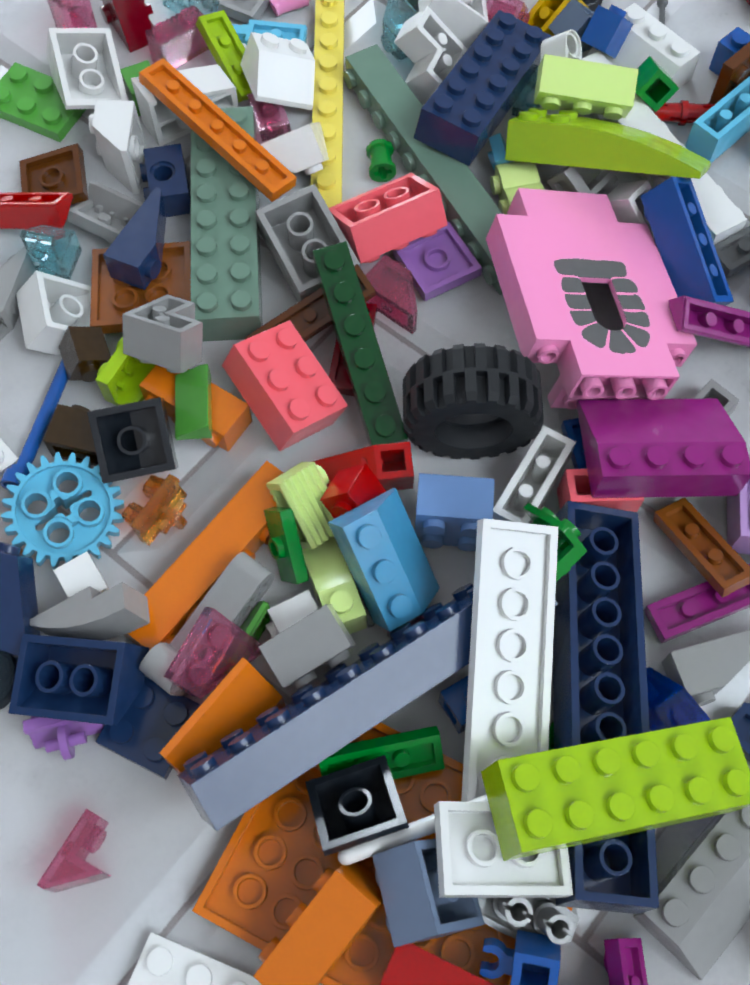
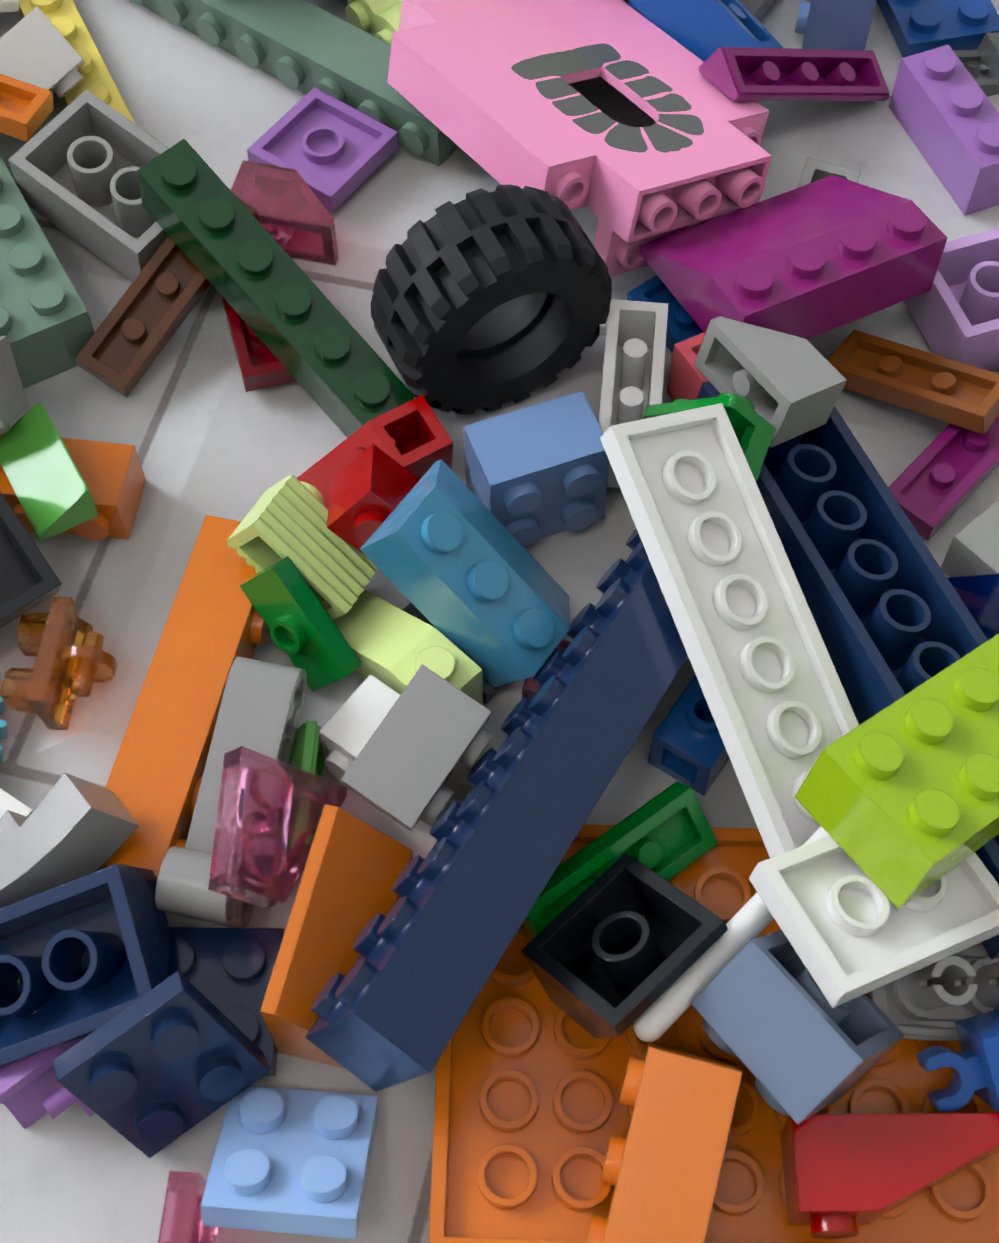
camera: 25 degrees left, 5 degrees down
(106, 753) = (161, 1065): none -> dark blue plate
(148, 831) = (291, 1162): none -> light blue plate
(284, 384) = (178, 393): coral brick -> none
(381, 167) = (171, 50): green bush -> none
(390, 216) = (231, 98): coral brick -> none
(604, 517) = (773, 370): none -> light grey slope

